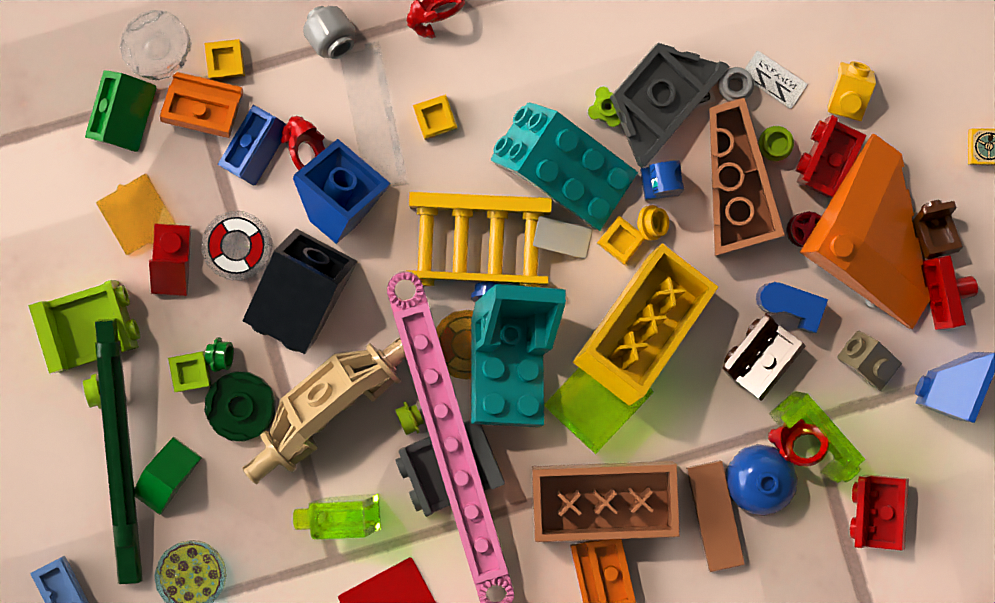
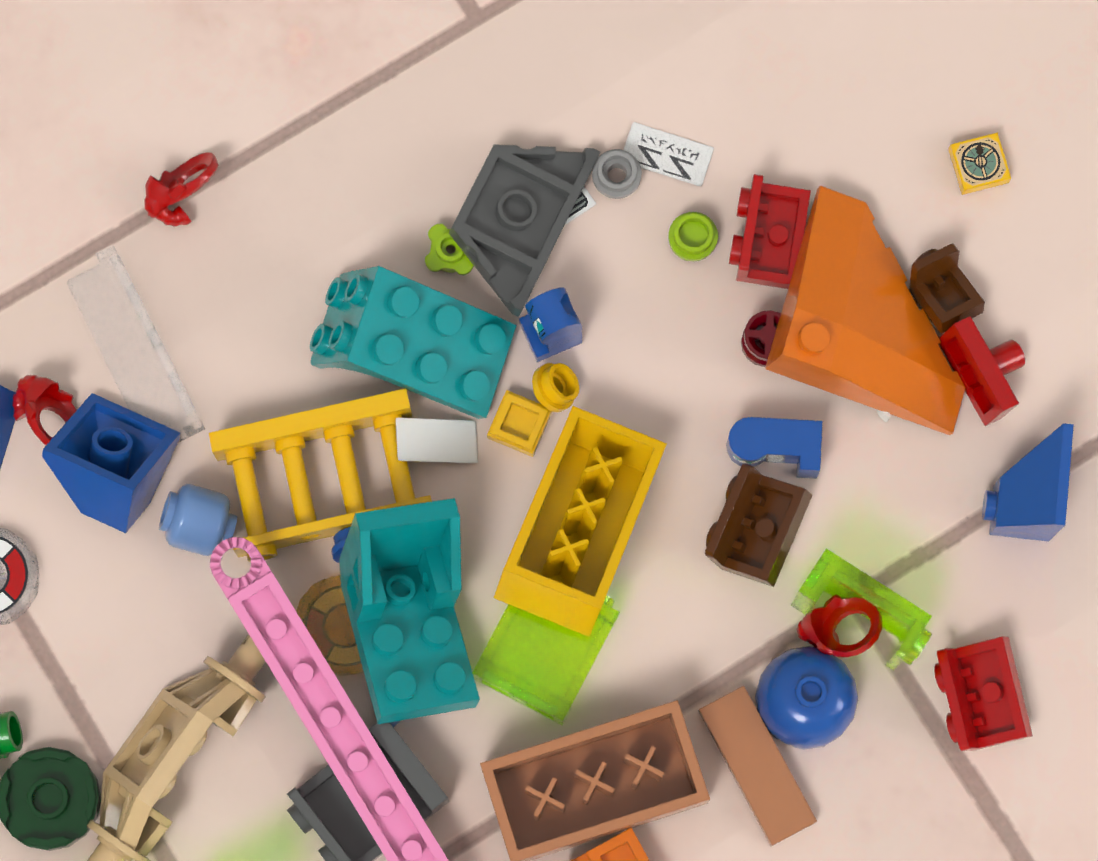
camera: 15 degrees left, 10 degrees down
(298, 291) = (90, 613): black slope -> none
(329, 32) = (44, 252): light grey head -> none
(386, 247) = (197, 519): none -> medium blue head
(409, 418) = (291, 748): lime plate -> none
(435, 117) = (218, 328): yellow tile -> none
(740, 186) = (661, 308): nougat wedge -> none
(852, 90) = (775, 139): yellow bracket -> none
(869, 359) = (907, 490): dark tan bracket -> none

